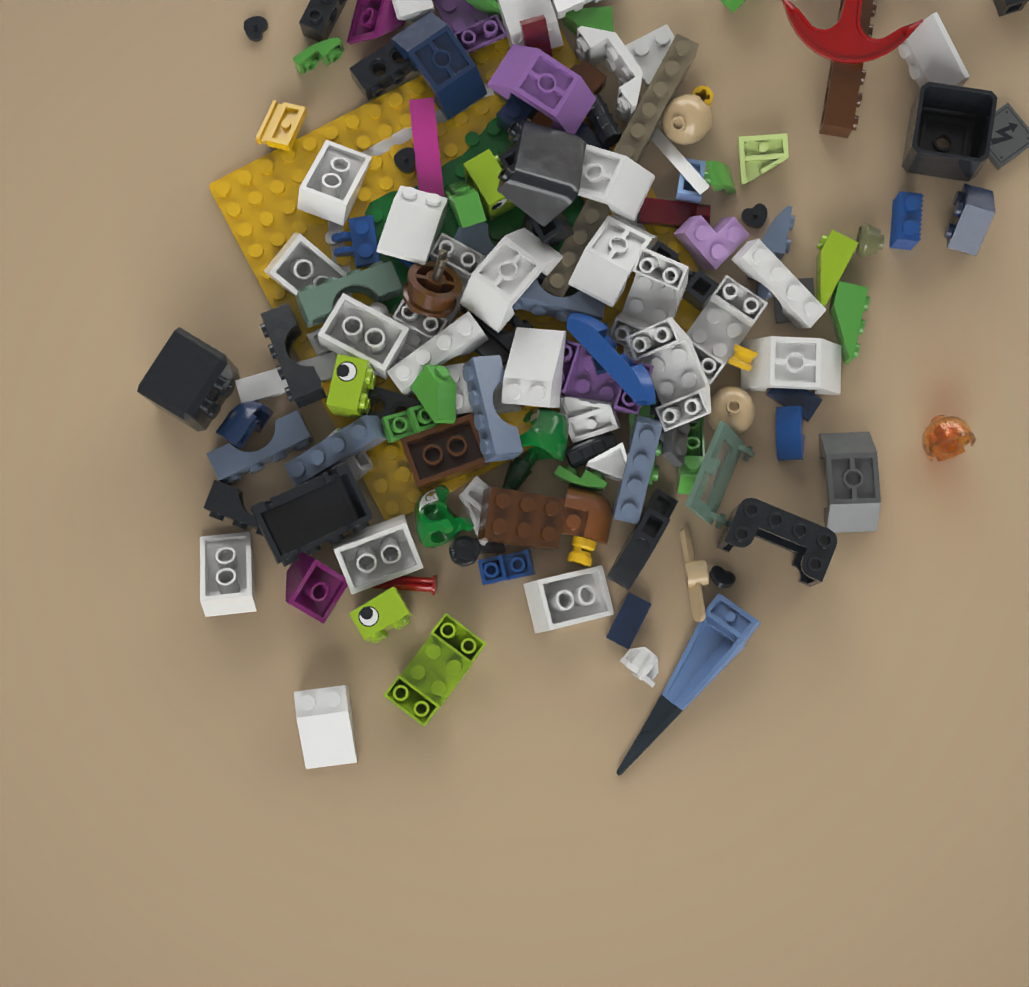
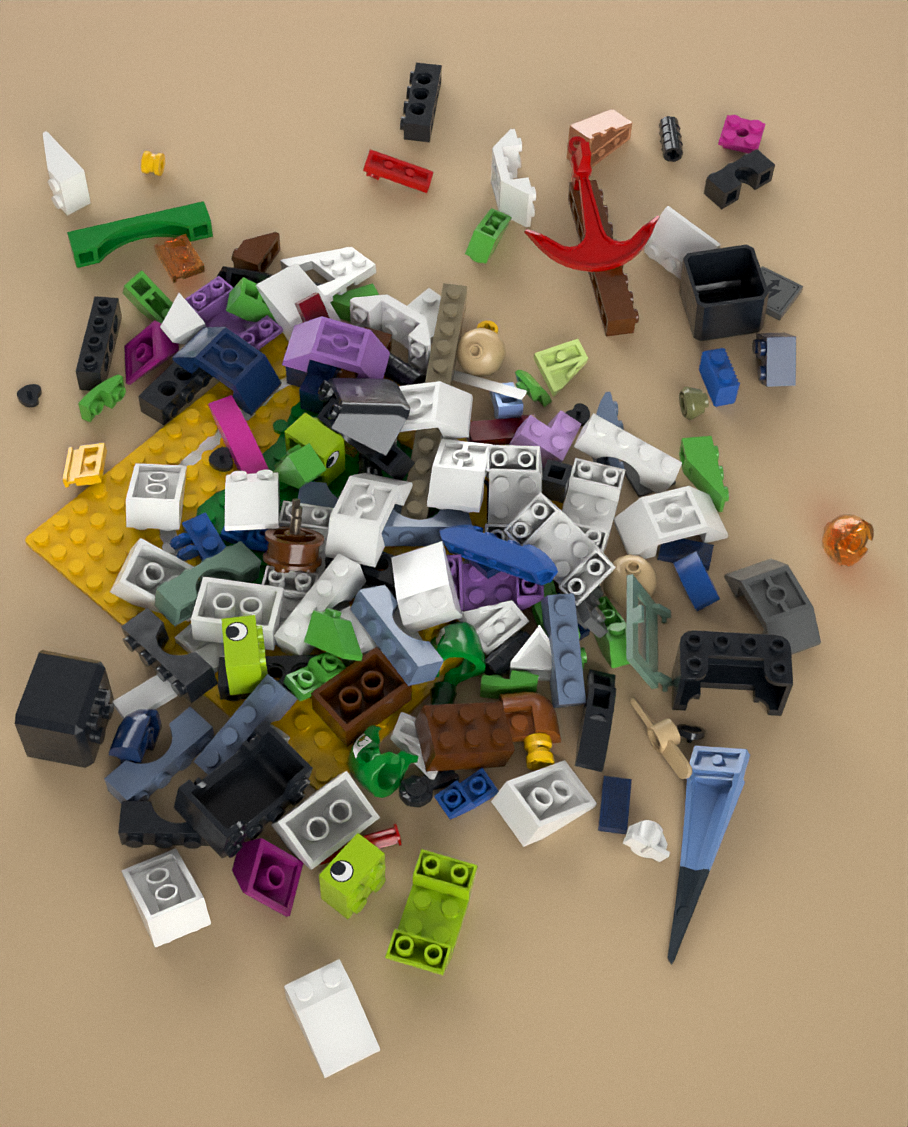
camera: 25 degrees left, 25 degrees down
(742, 357) = (622, 526): yellow wheel -> none
(831, 262) = (667, 426): lime slope -> none

